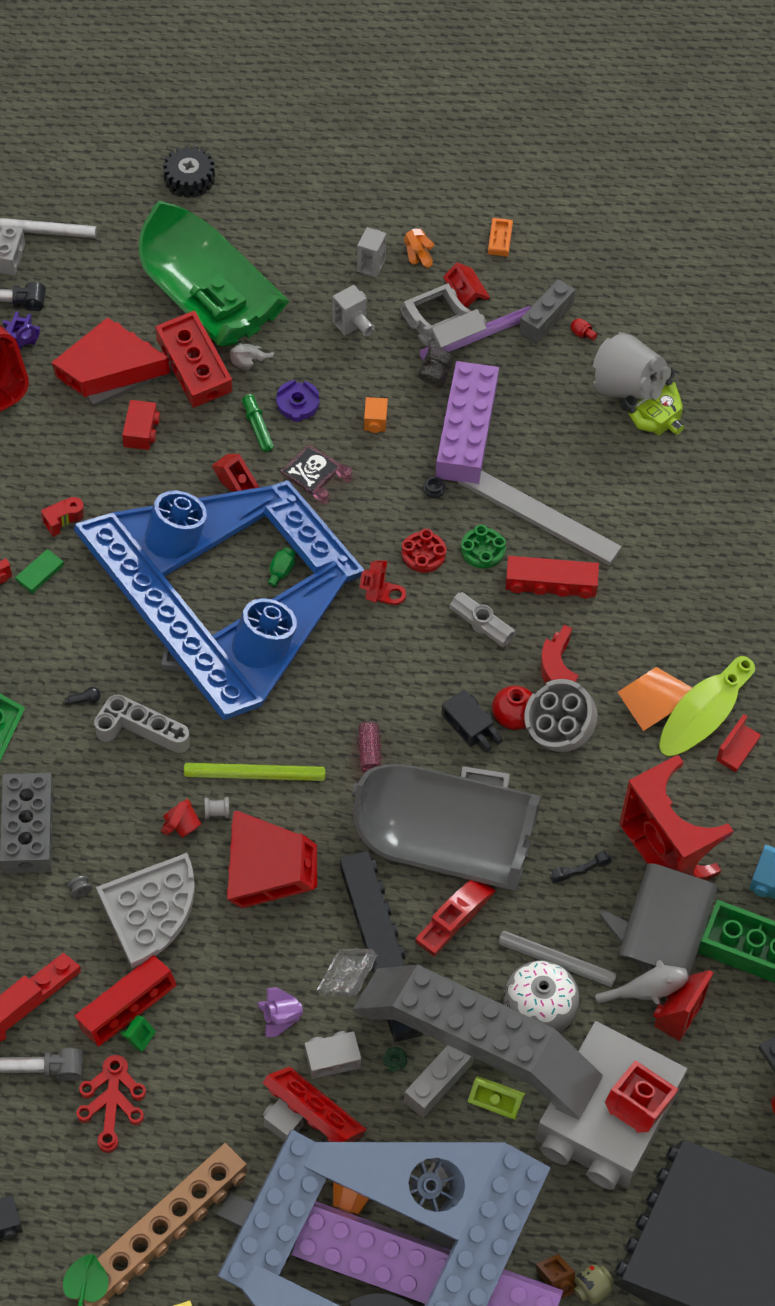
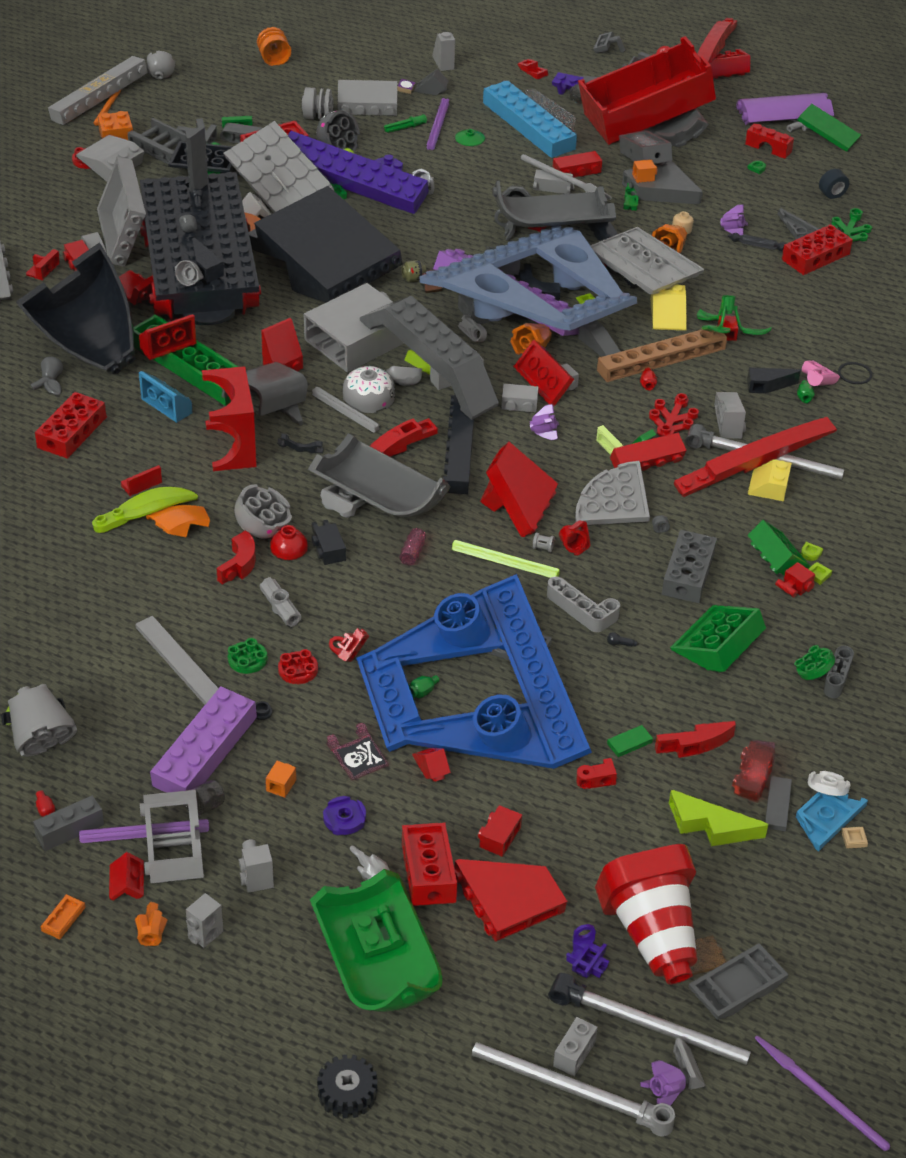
camera: 160 degrees left, 15 degrees down
(30, 1120) = (730, 415): none -> light grey wedge
(165, 1168) = (648, 379): none -> red plant
(184, 1009) = (607, 440): none -> yellowish green tile
(255, 414) = (390, 811): green axle -> none
(347, 972) = (492, 427): clear plate -> none
(552, 576) = (206, 615): red brick -> none
(640, 1097) = (340, 299): red slope -> none
(650, 985) = (297, 362): light grey piece -> none

